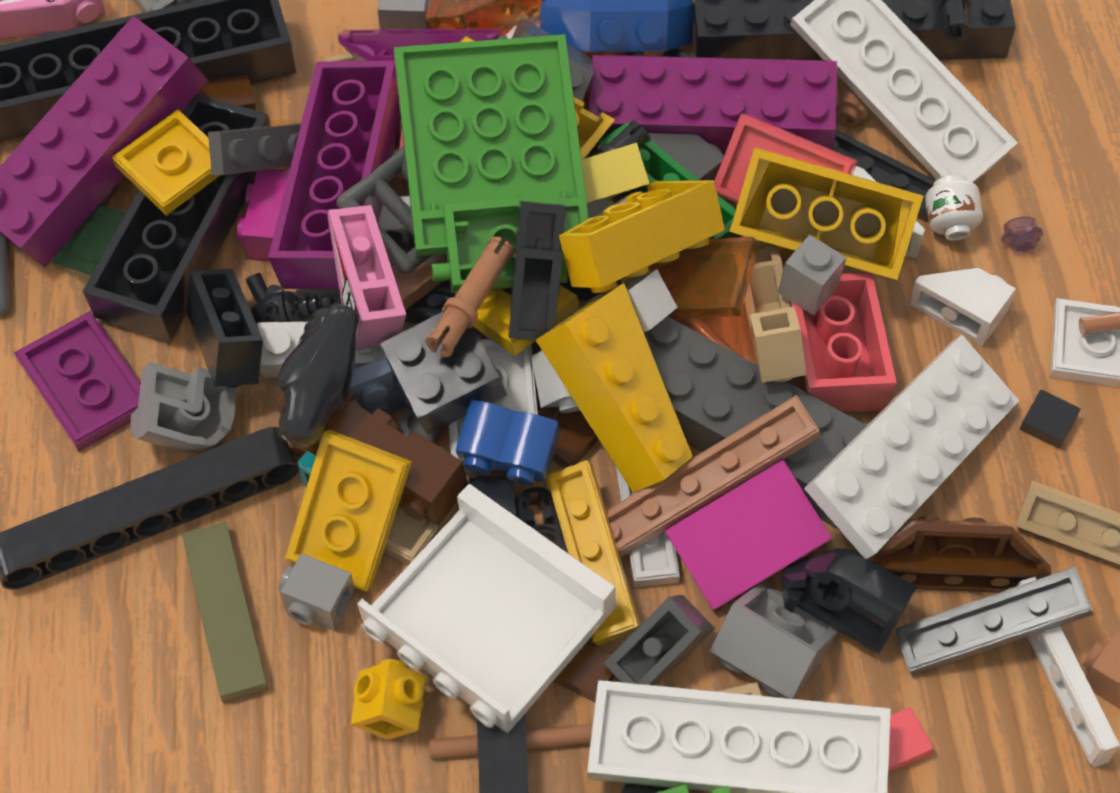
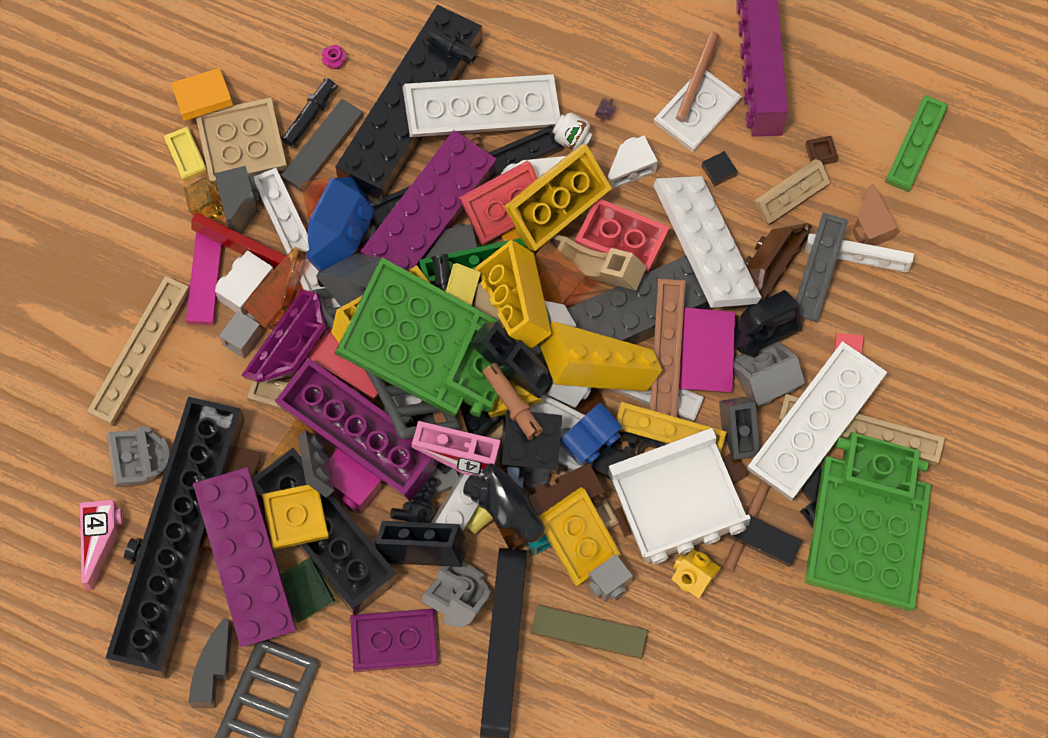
camera: 60 degrees left, 10 degrees up
(811, 274) = (590, 227): light grey brick -> none

